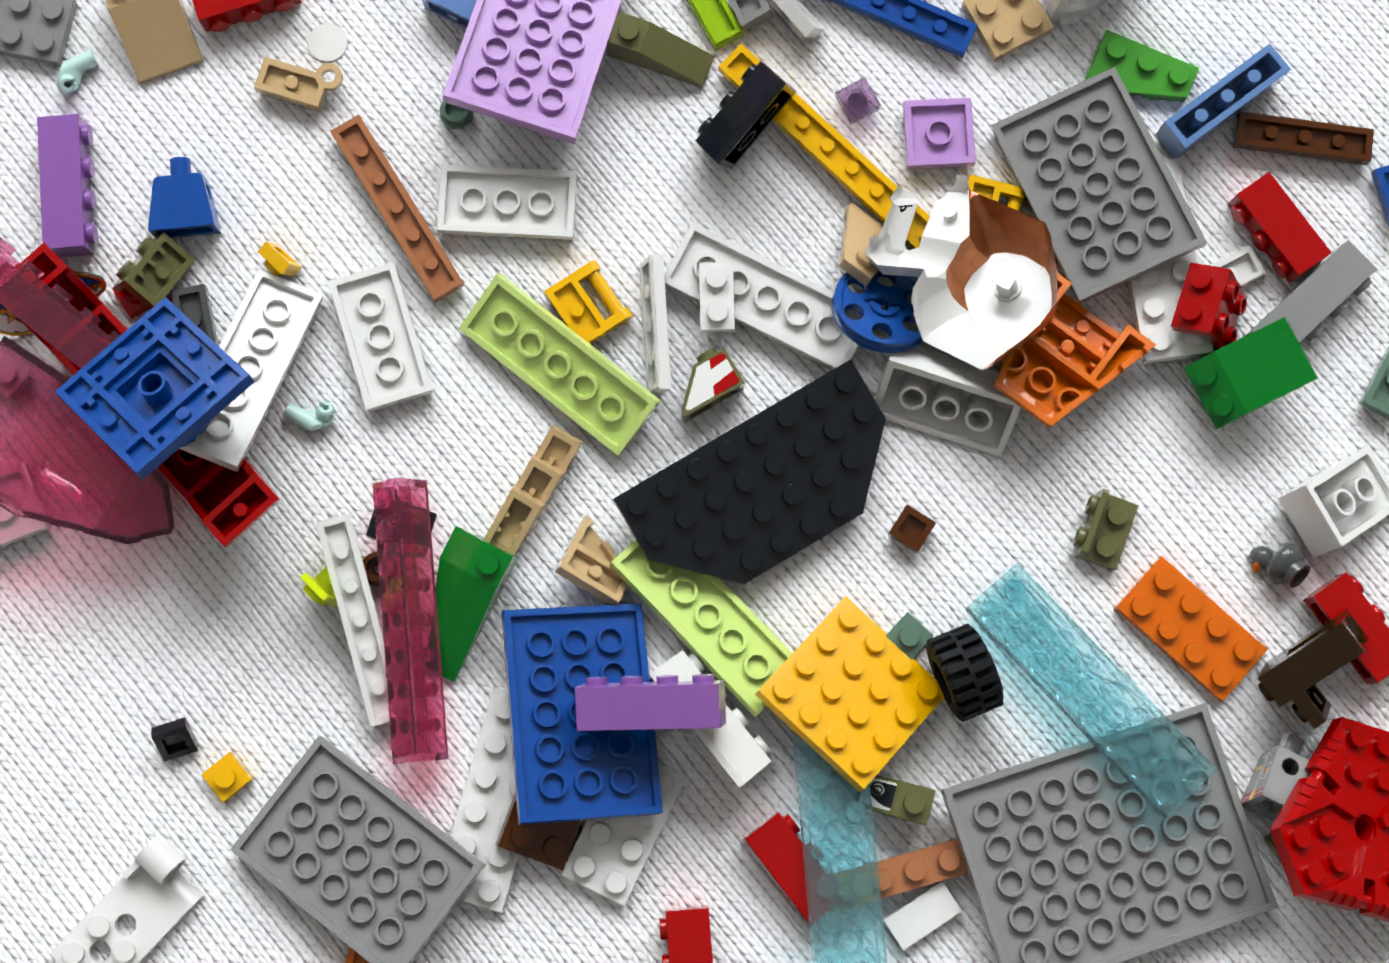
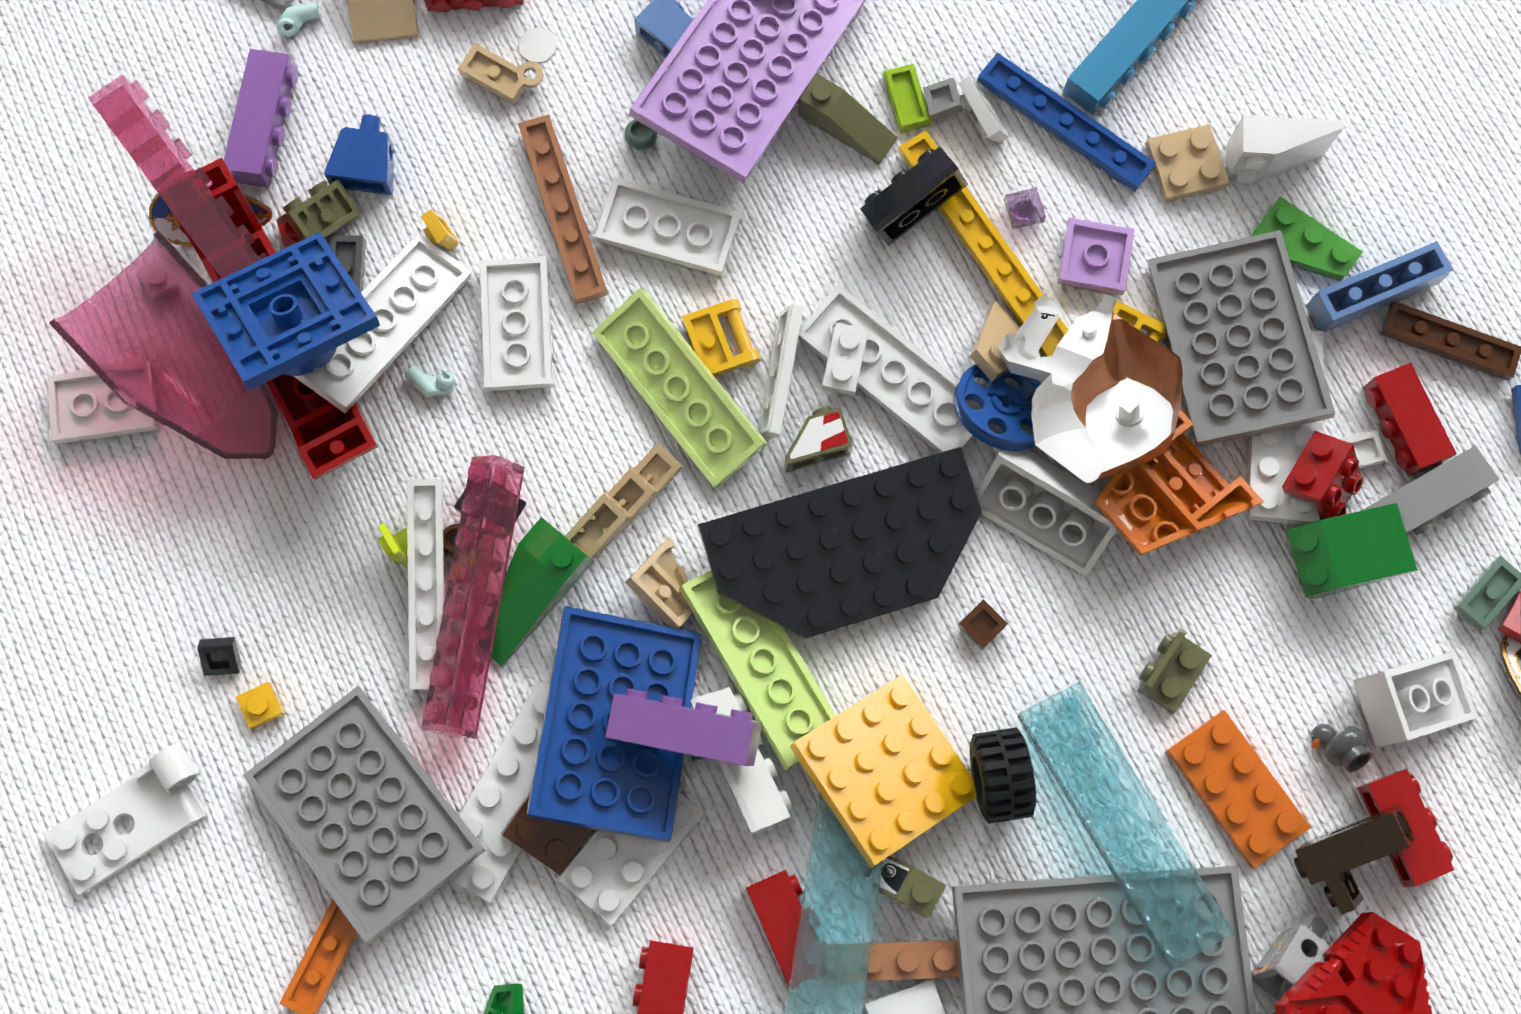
camera: 15 degrees right, 5 degrees down
(909, 635) = (956, 728): sand green plate -> none

